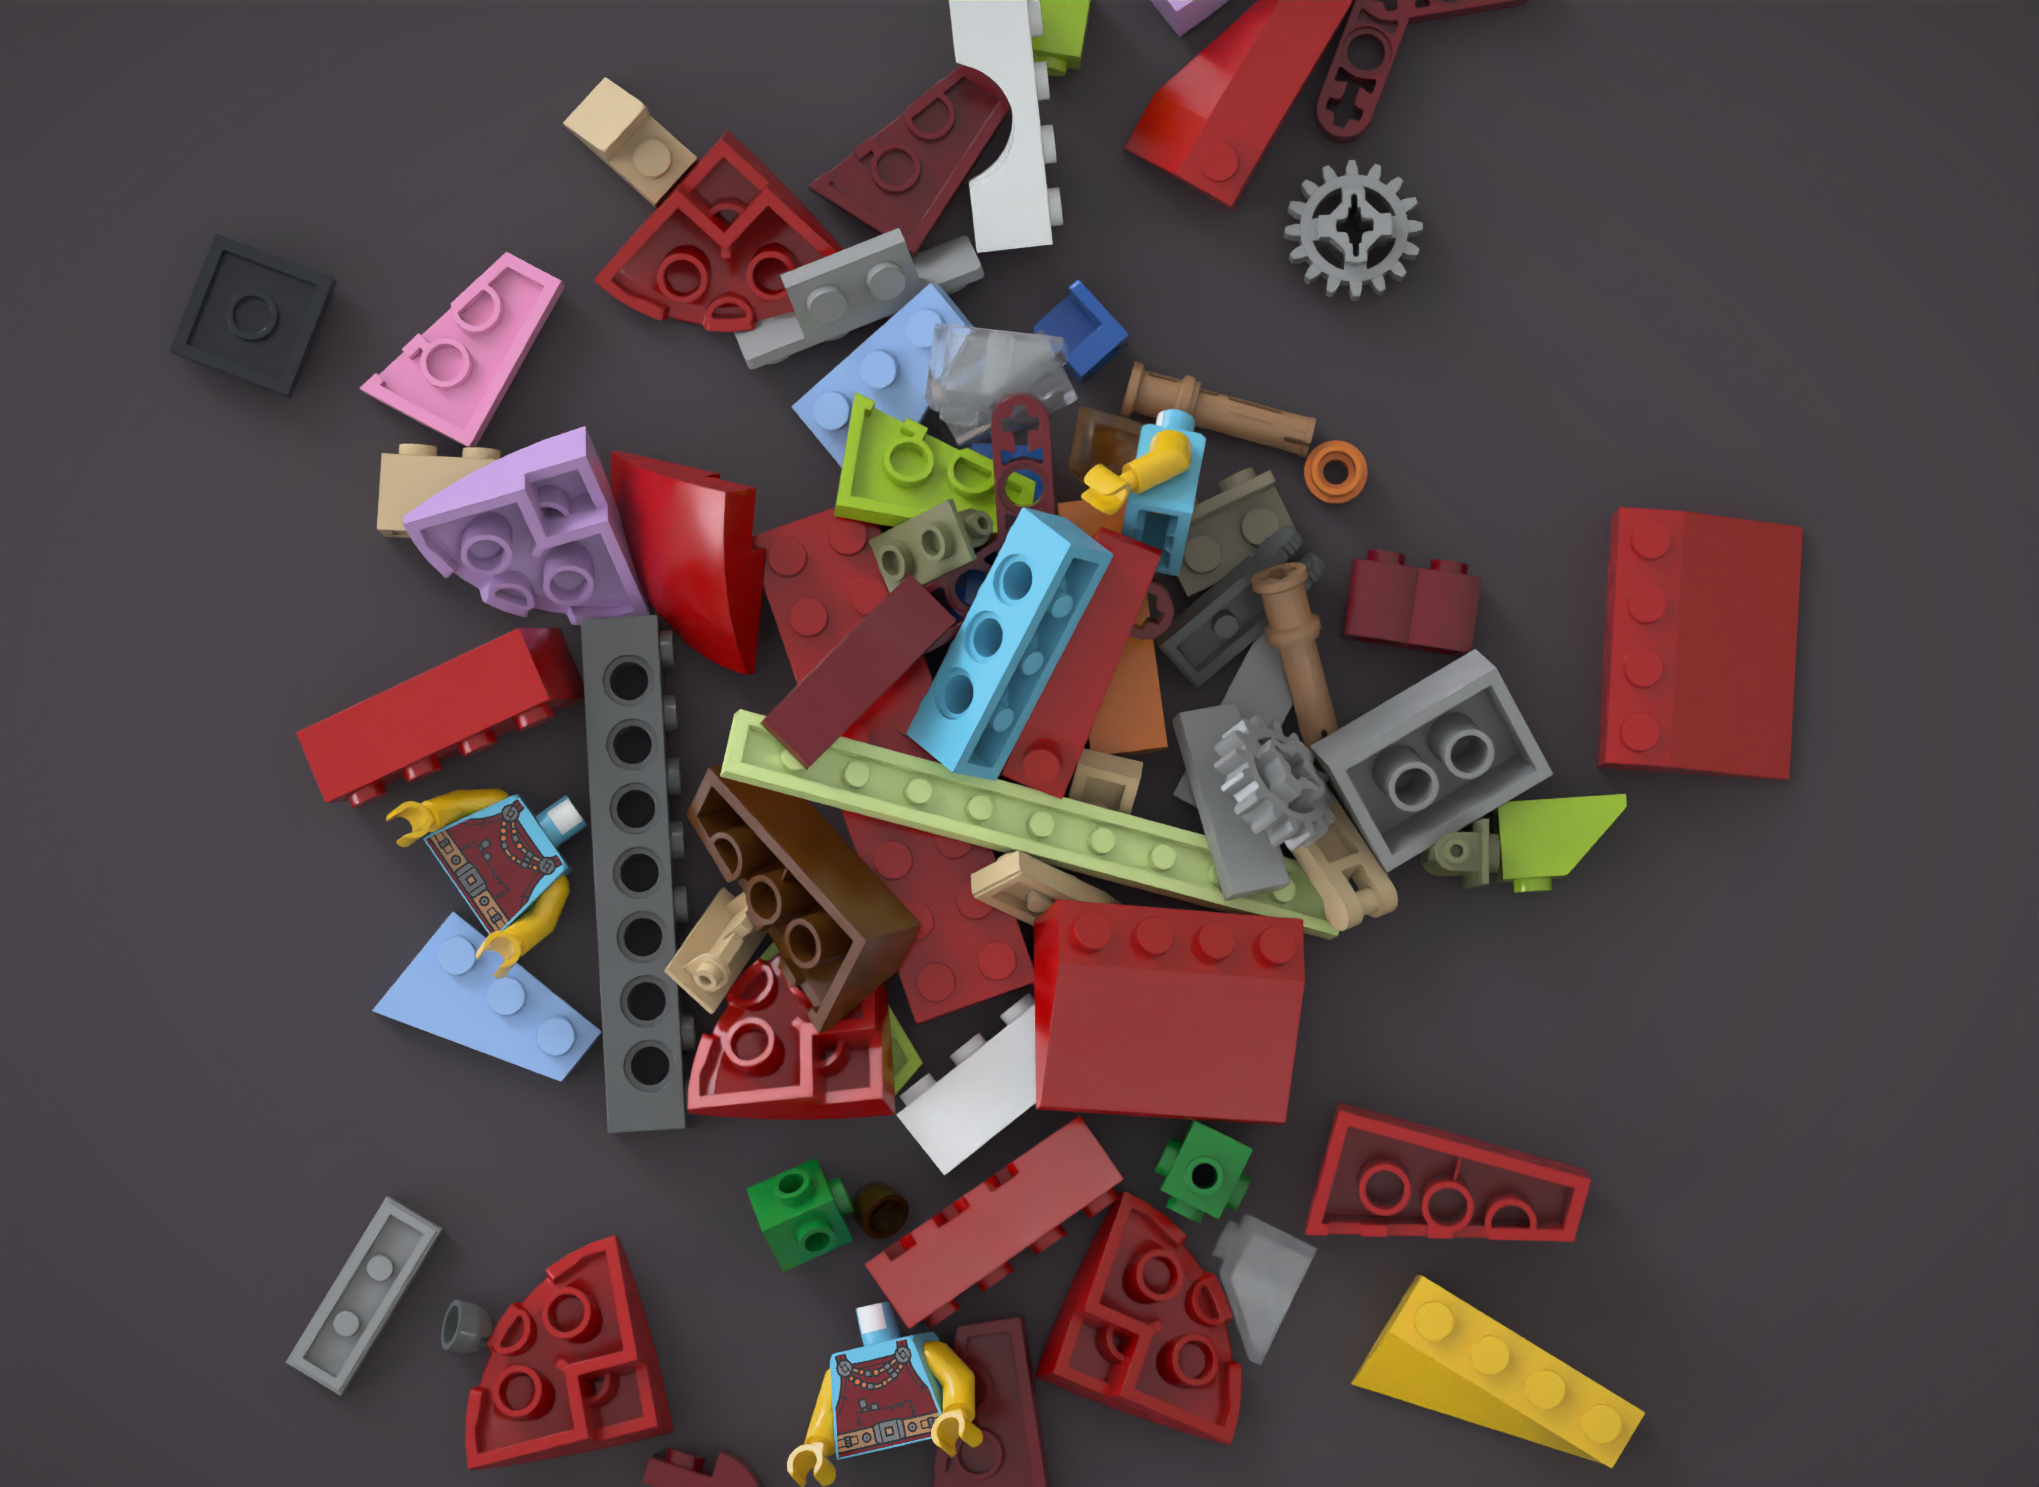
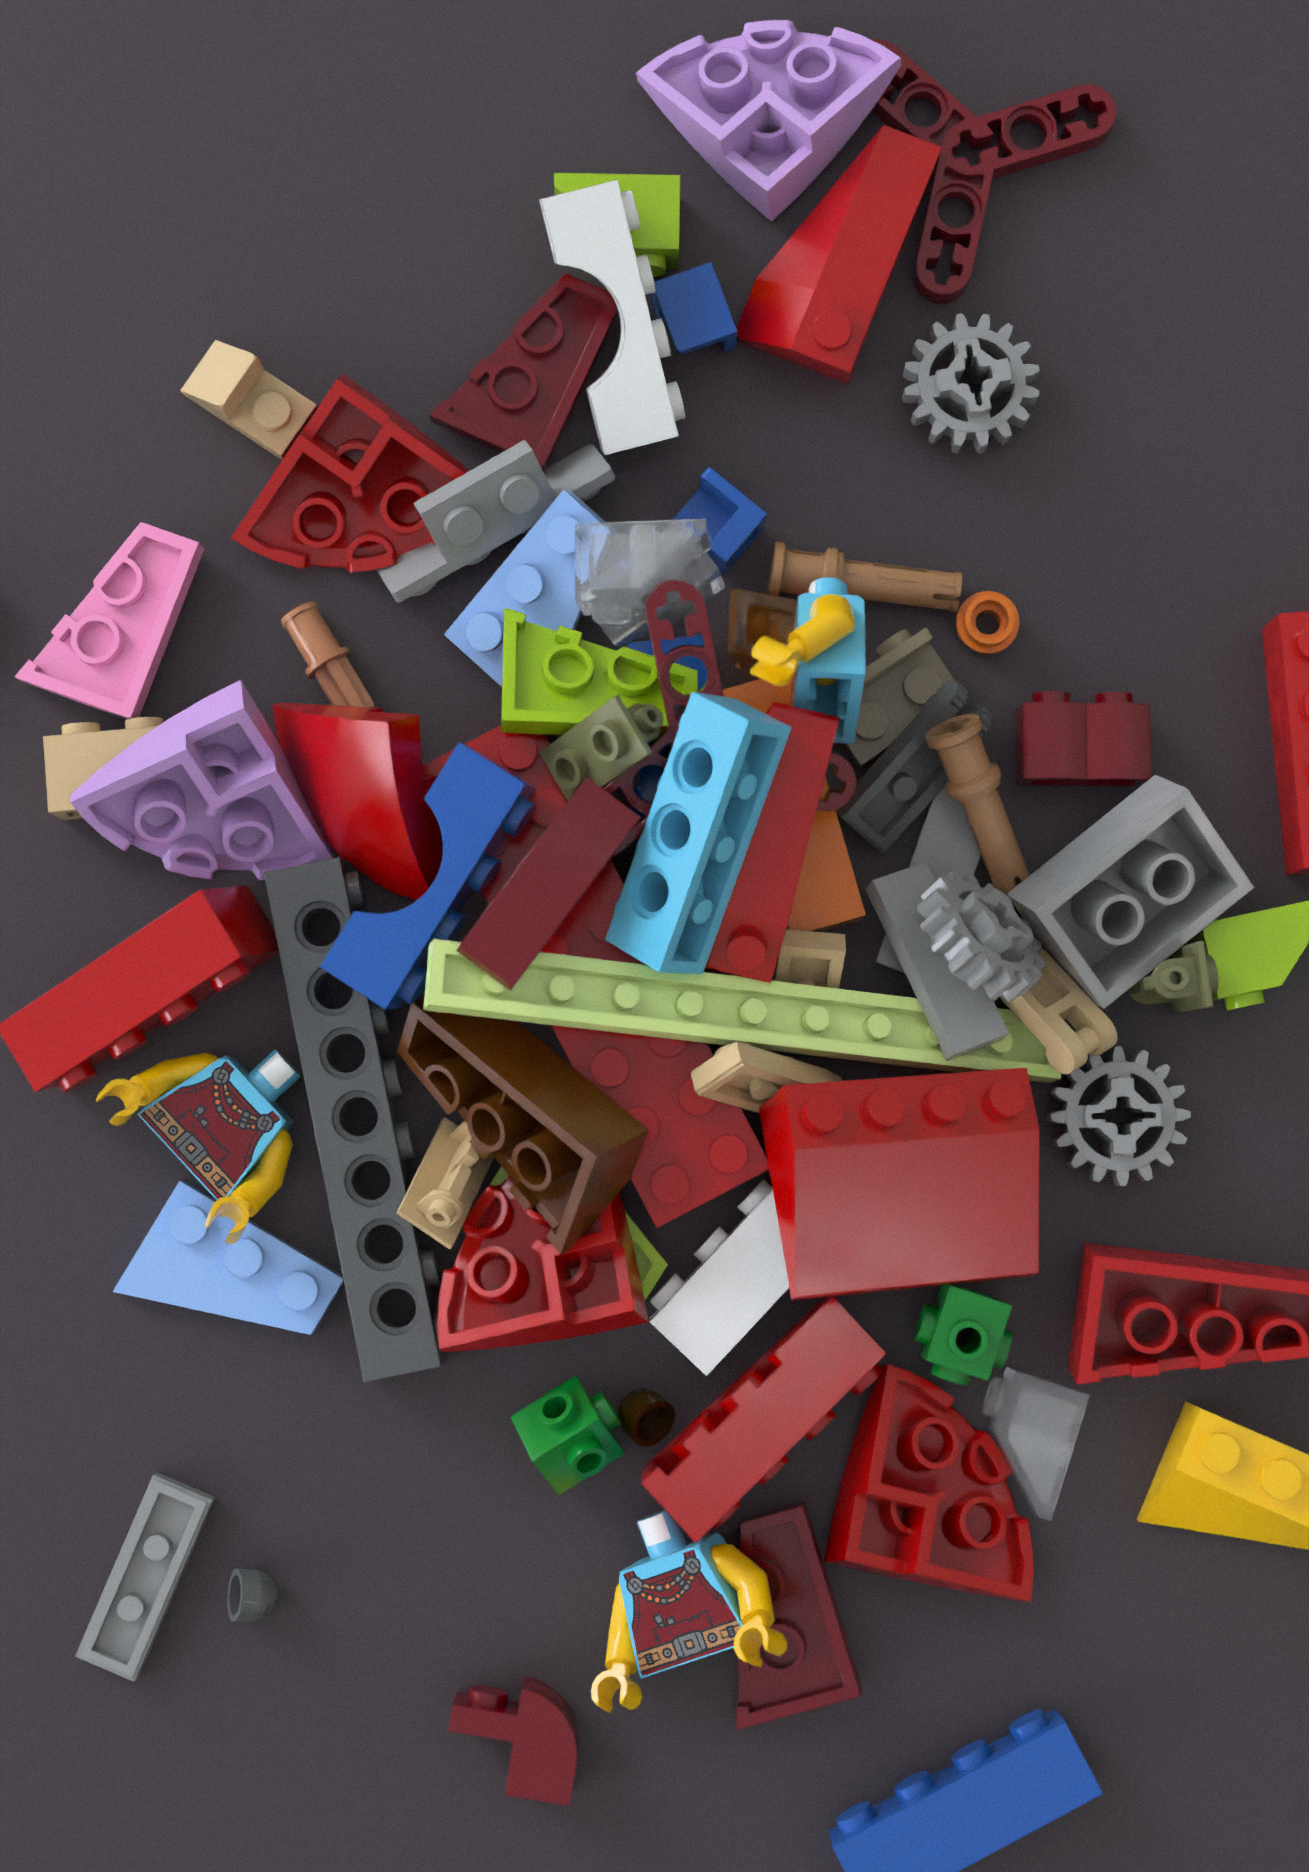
camera: 10 degrees left, 0 degrees up
(569, 1367) = (359, 1620): red brick -> none
(670, 413) = (325, 657): none -> nougat axle
(798, 589) = (476, 811): none -> blue arch
(1087, 119) = (695, 310): none -> blue panel
(1385, 1010) = (1122, 1146): none -> light grey gear

